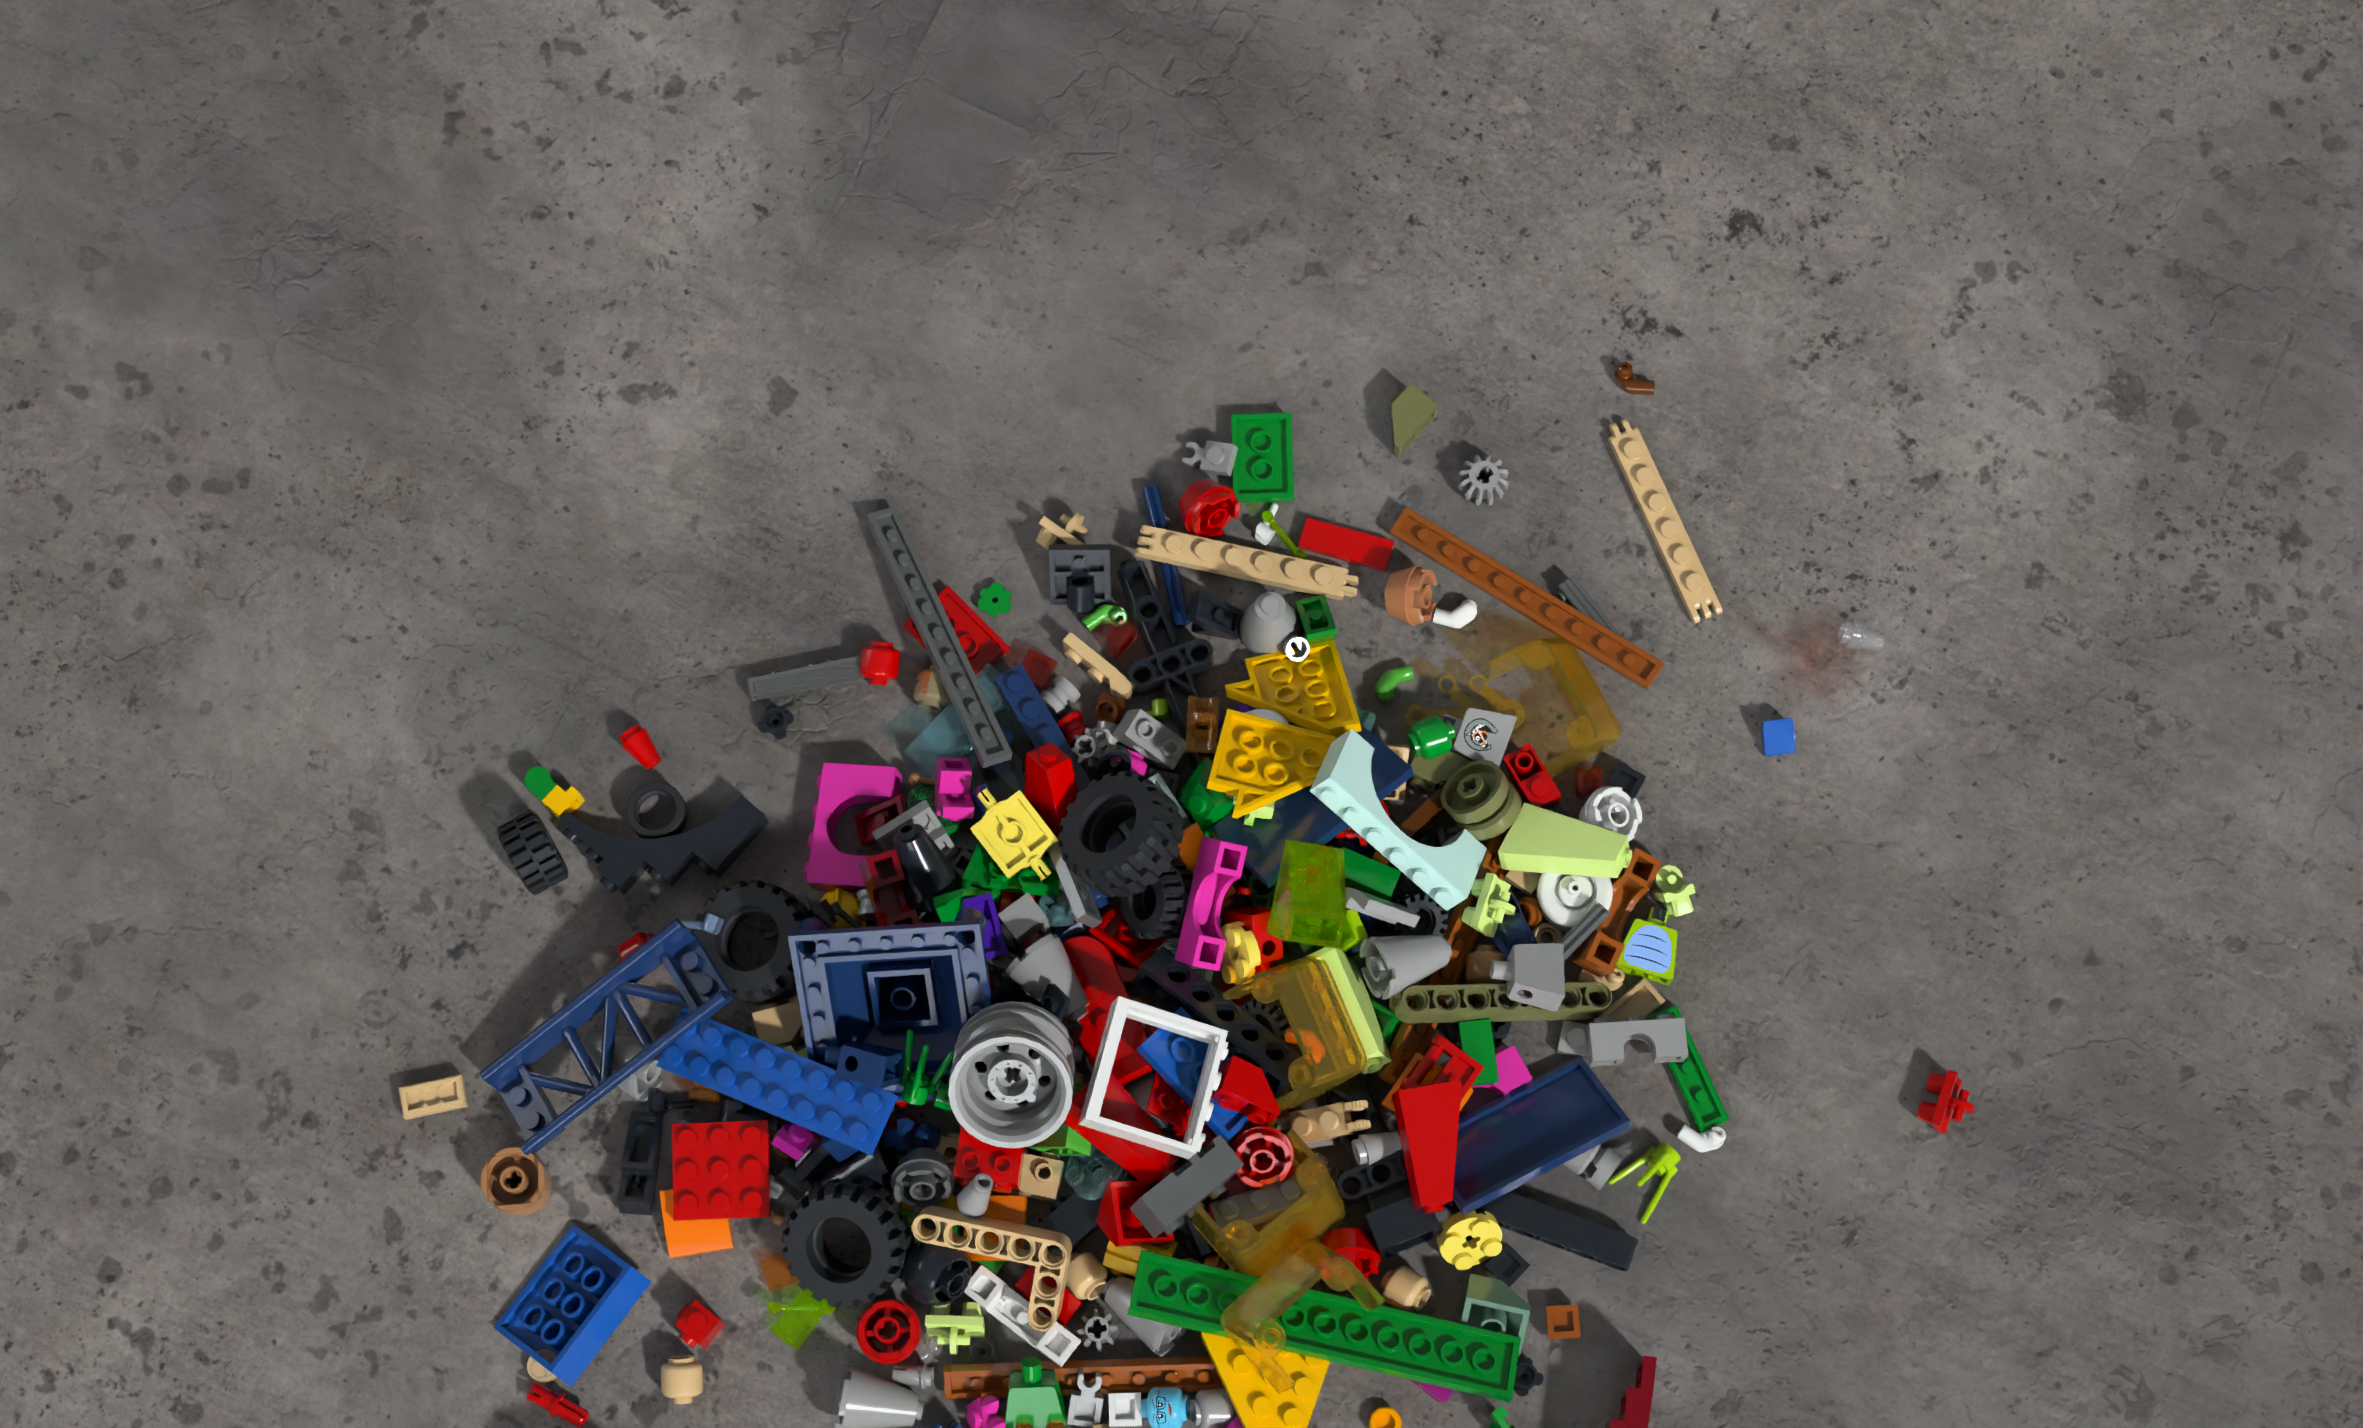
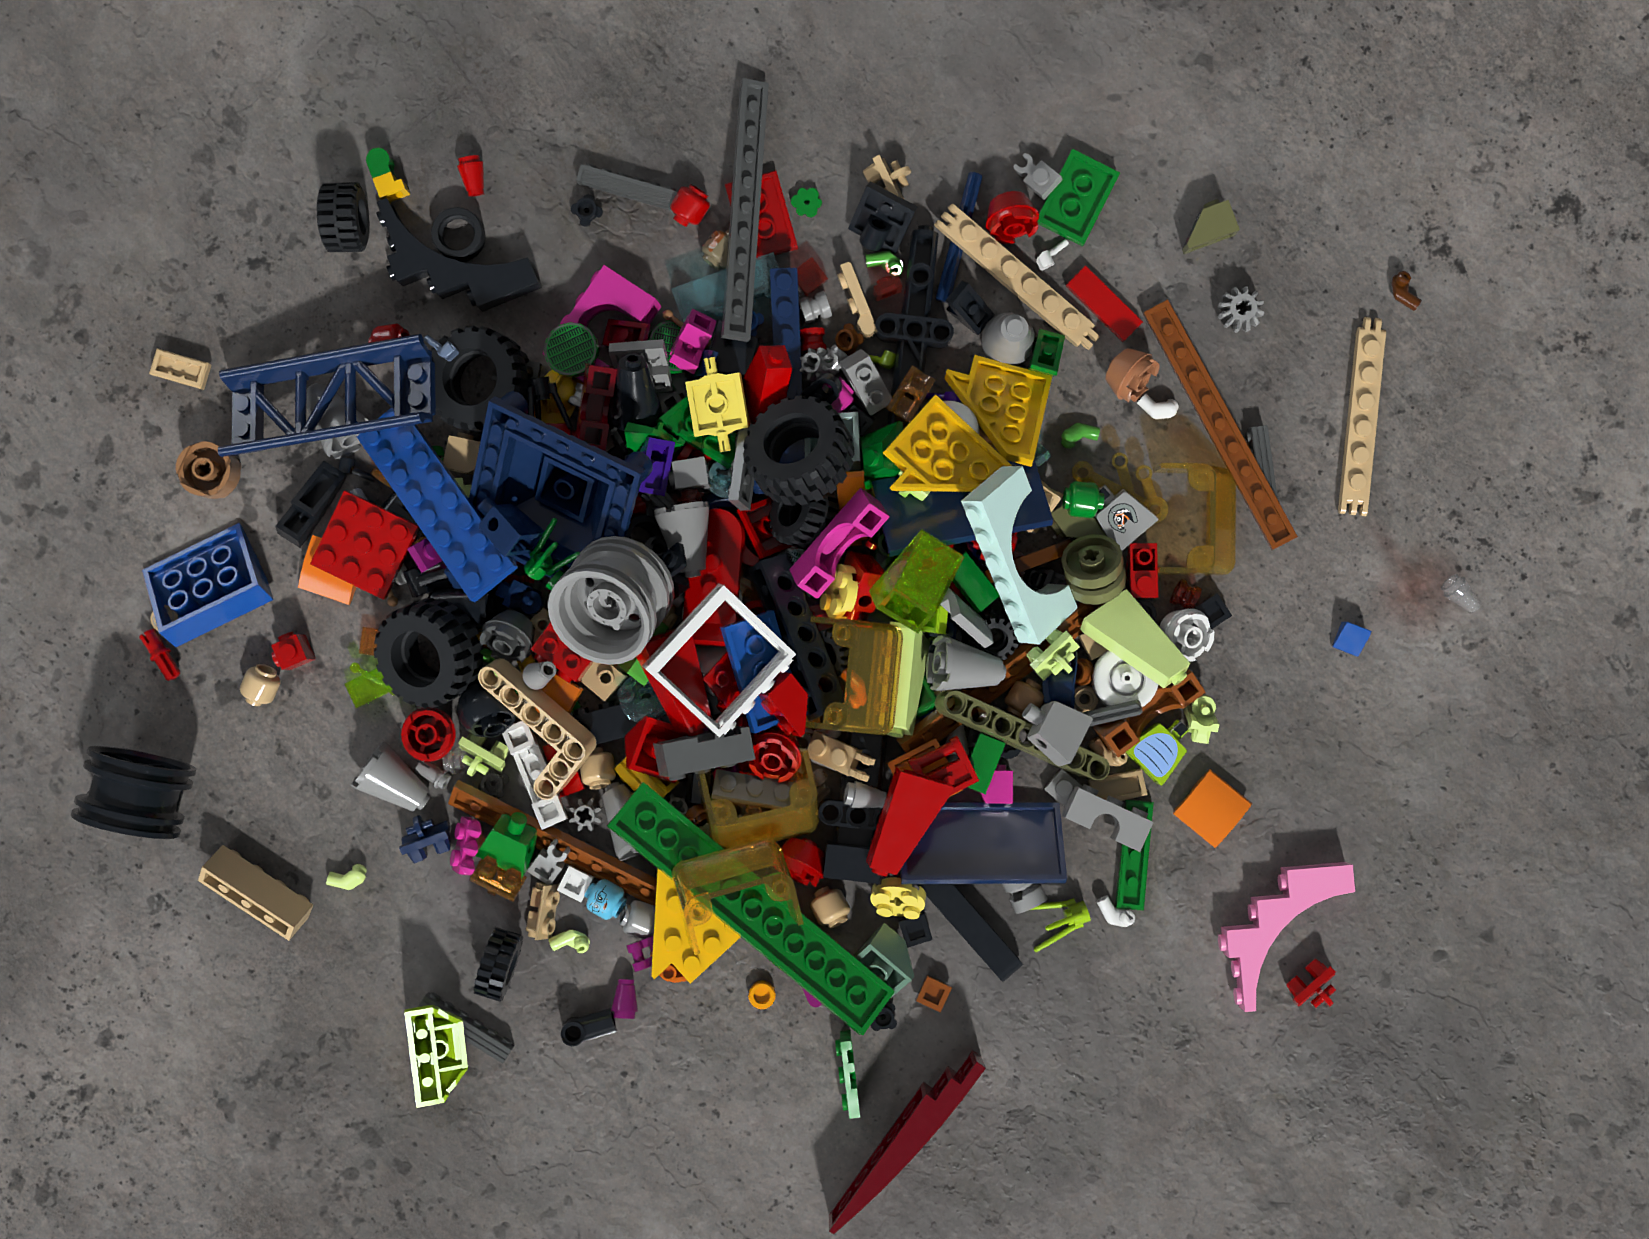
camera: 25 degrees right, 15 degrees up
(834, 860) = (570, 349): none -> tile
(1267, 516) = (1055, 248): clear neon green hinge -> none
(1300, 643) = (1024, 369): hinge -> none
(1738, 978) = (1212, 808): none -> orange slope
(1858, 1054) = (1270, 914): none -> bright pink arch

